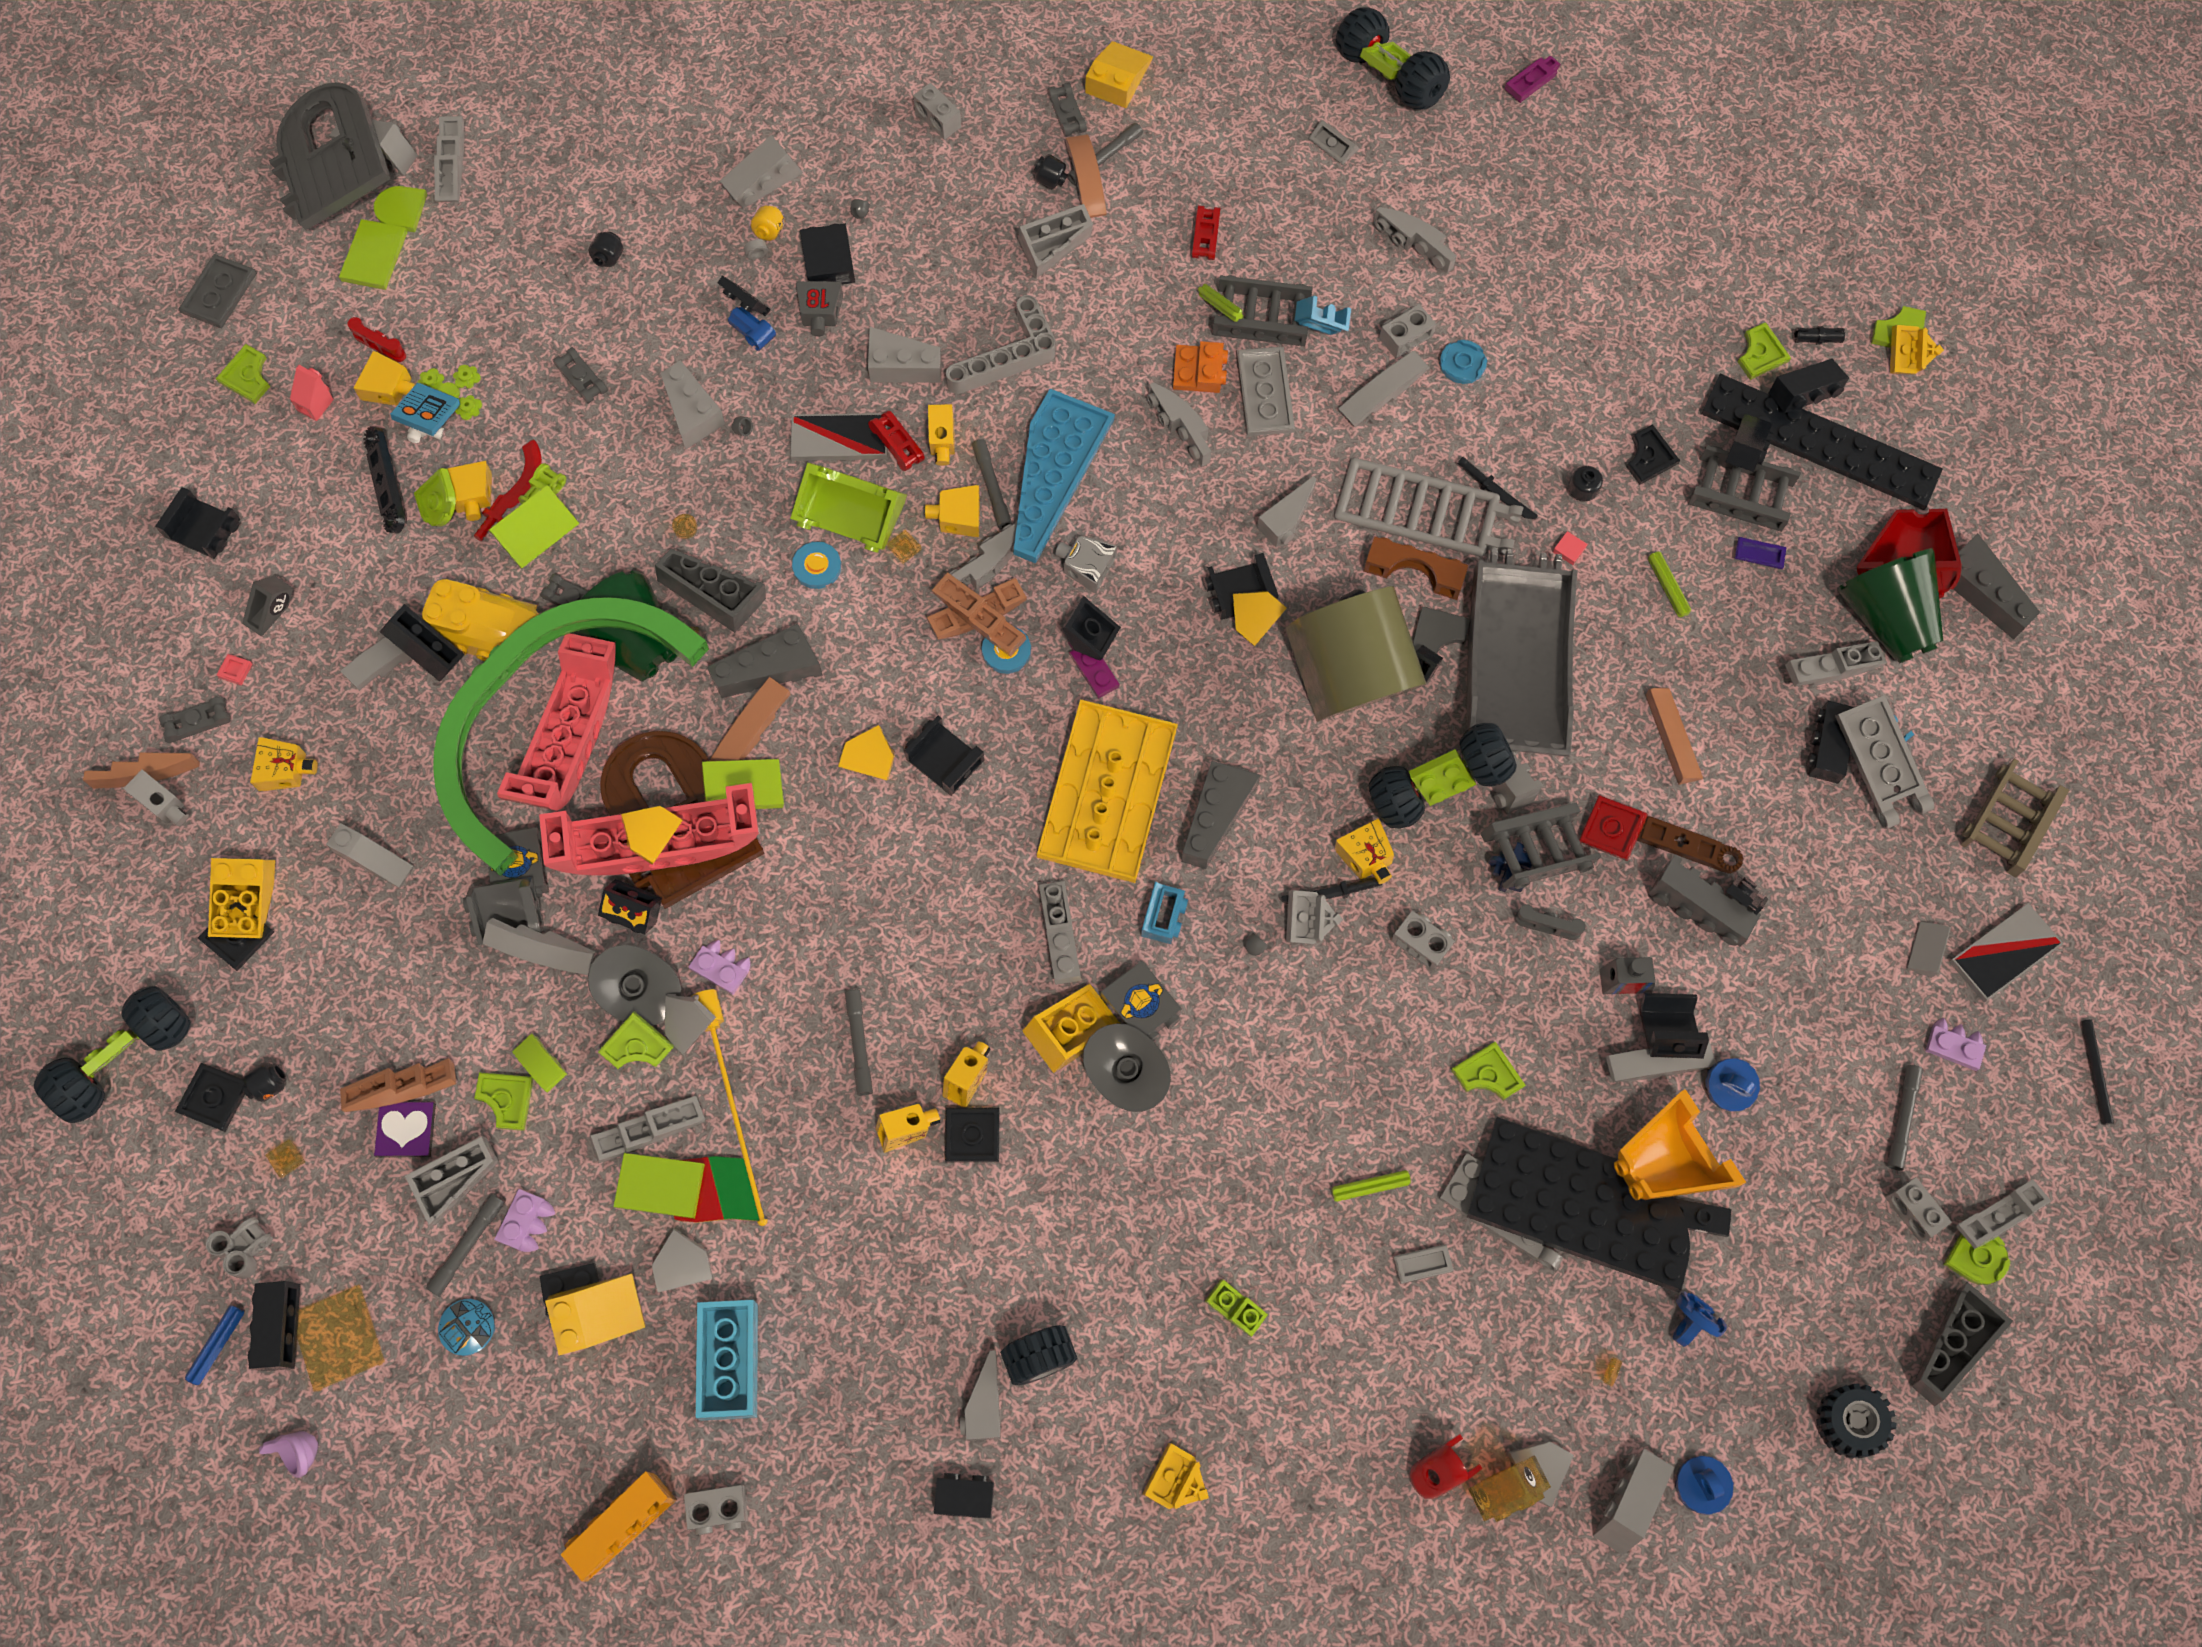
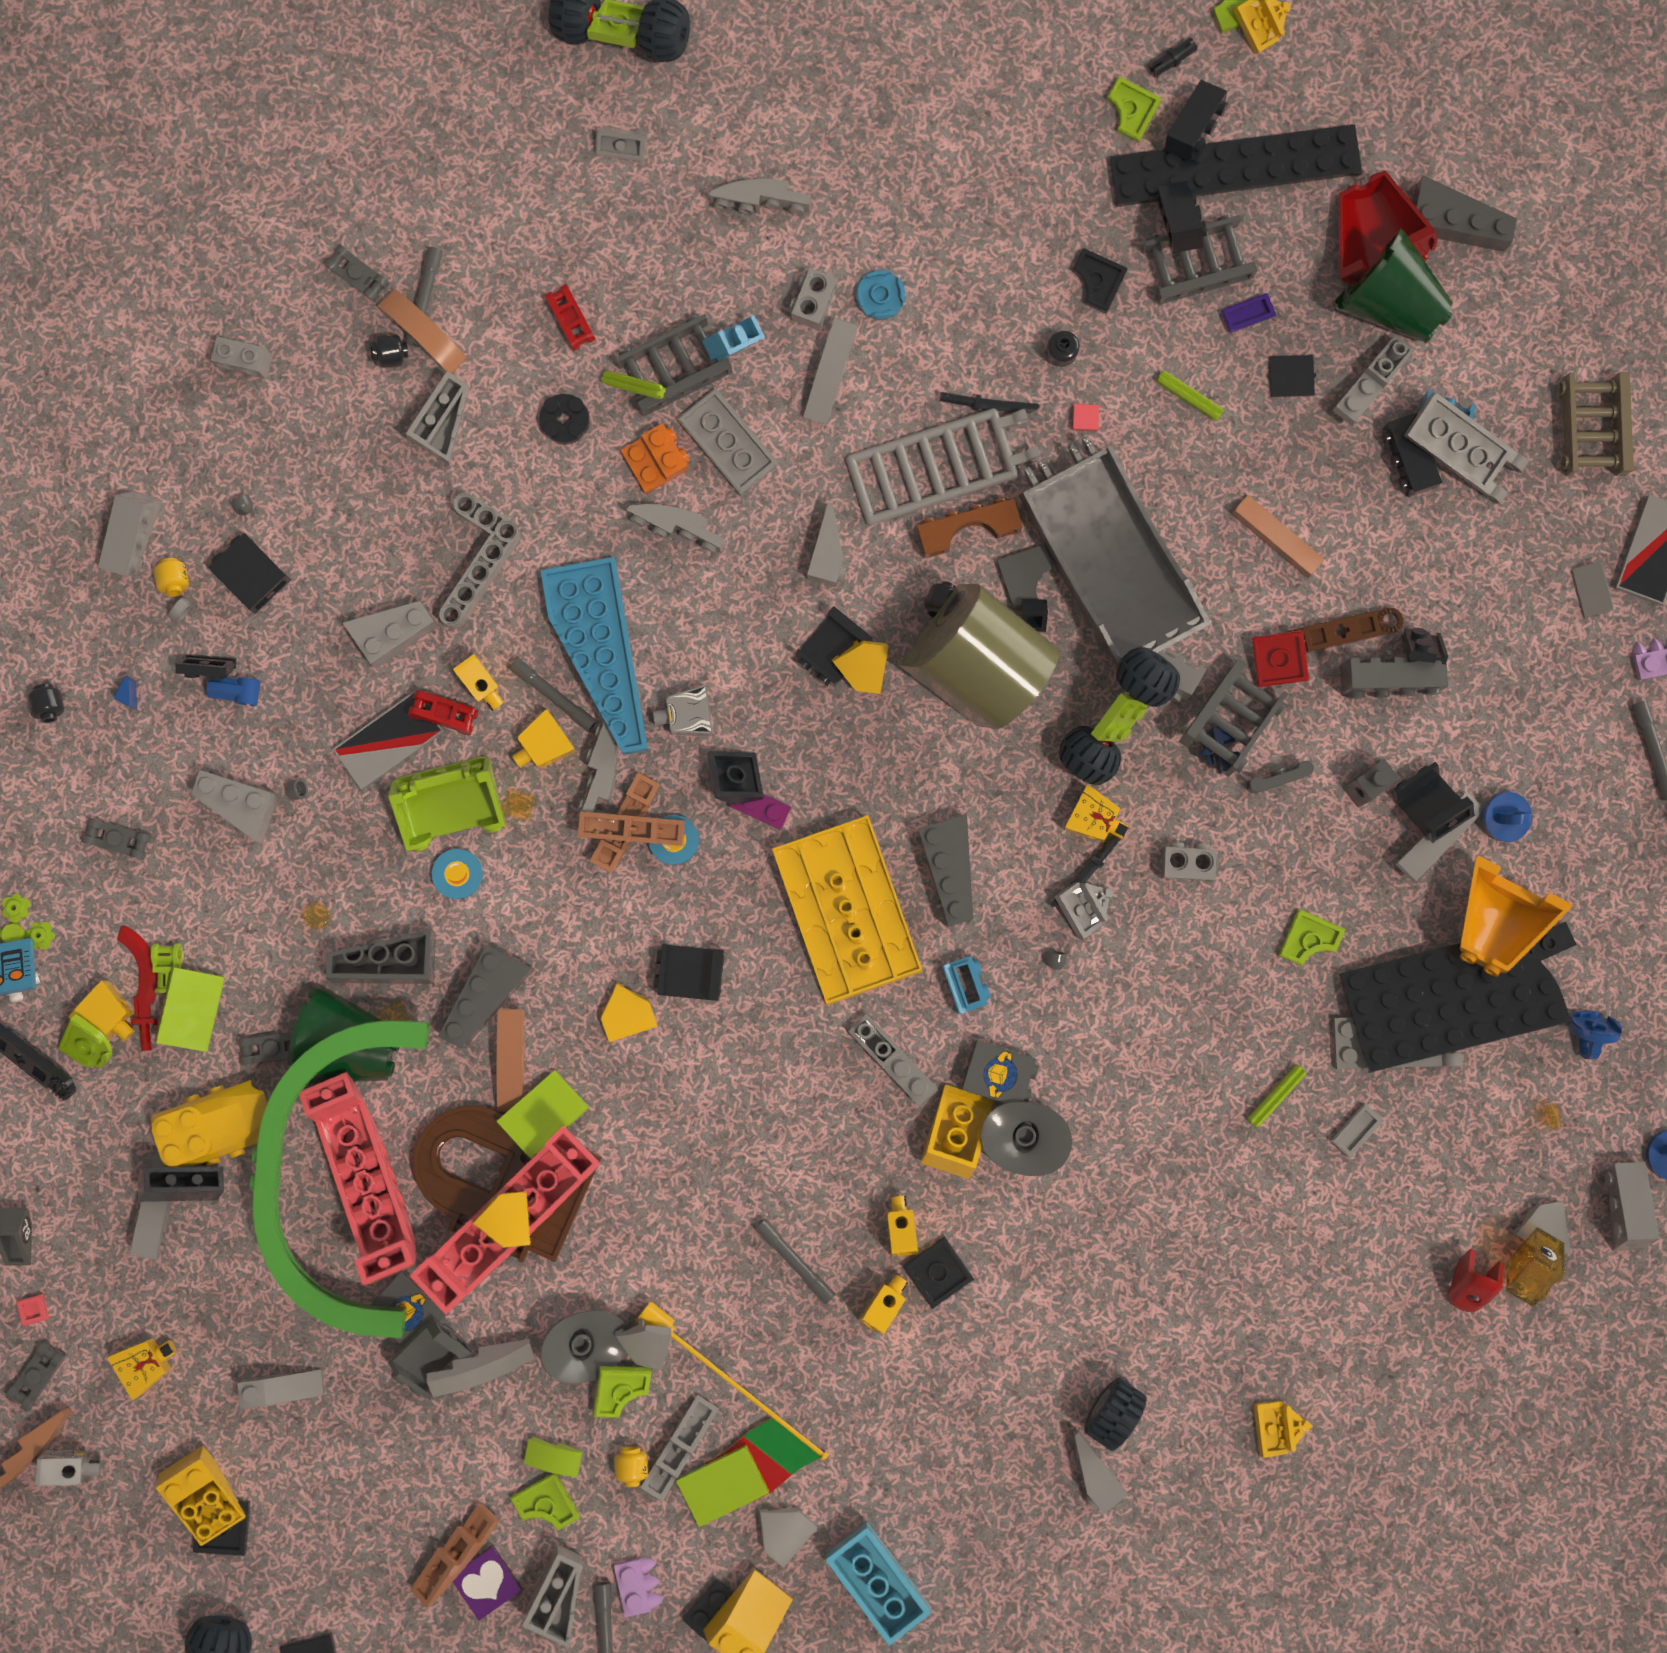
camera: 30 degrees left, 15 degrees up
(264, 1081) = (344, 1627): black head -> none
(596, 1114) = (631, 1466): none -> yellow head
(629, 906) = (529, 1282): black brick -> none
(671, 280) = (127, 693): none -> blue slope
(720, 968) = (637, 1279): lavender plate -> none
(819, 304) = (278, 627): dark grey torso -> none
(964, 1497) = (1130, 1554): black brick -> none
(1116, 74) = (376, 202): yellow slope -> none
(1144, 287) = (554, 408): none -> black plate
(1236, 1307) = (1236, 1265): lime slope -> none
(1767, 622) = (1292, 376): none -> black piece

